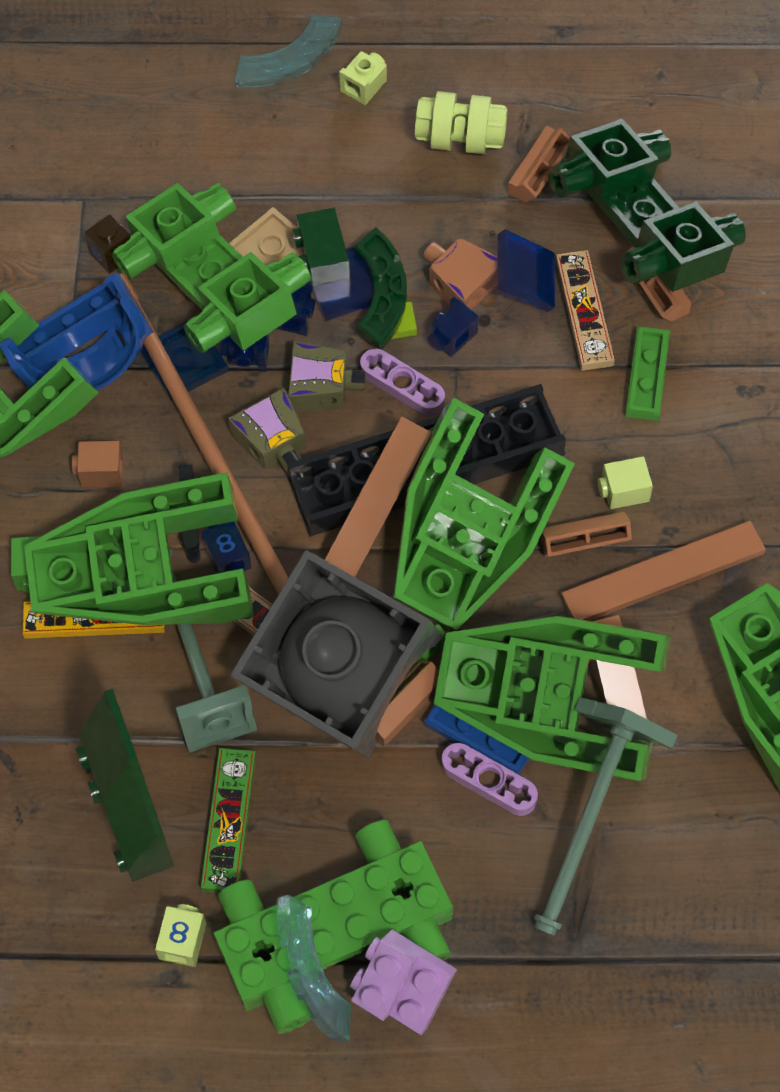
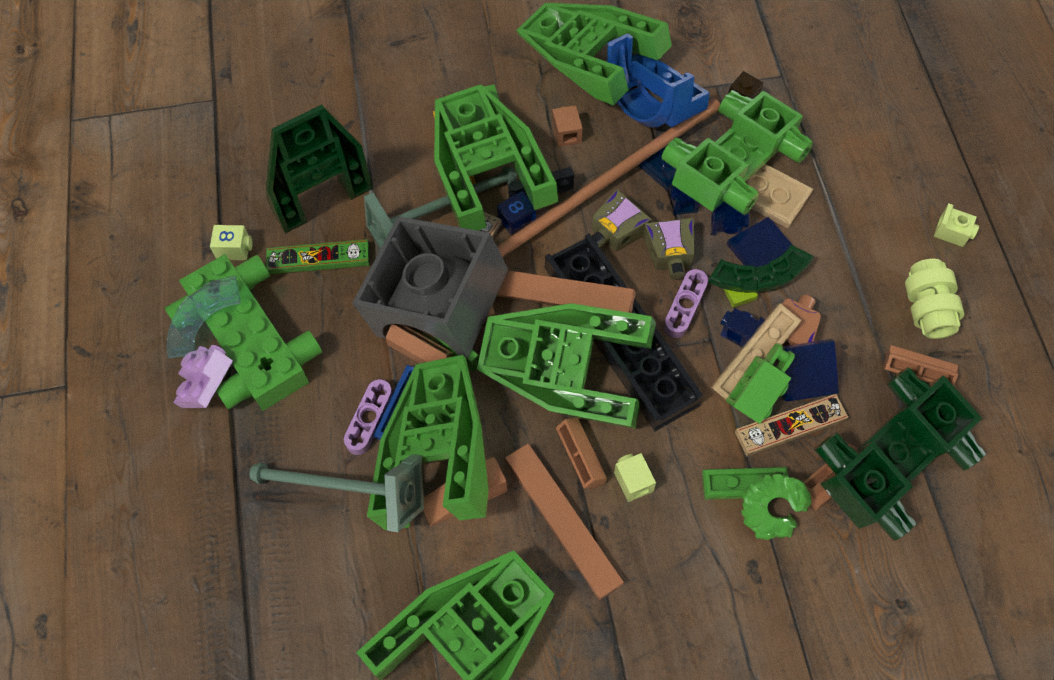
camera: 80 degrees right, 0 degrees up
(293, 59) = (957, 180): clear light blue tile -> none
(322, 246) = (782, 222): dark green brick -> none
(497, 317) = (773, 330): none -> tan tile
(540, 318) = (762, 384): none -> bright green brick
(672, 354) = (761, 493): none -> bright green piece

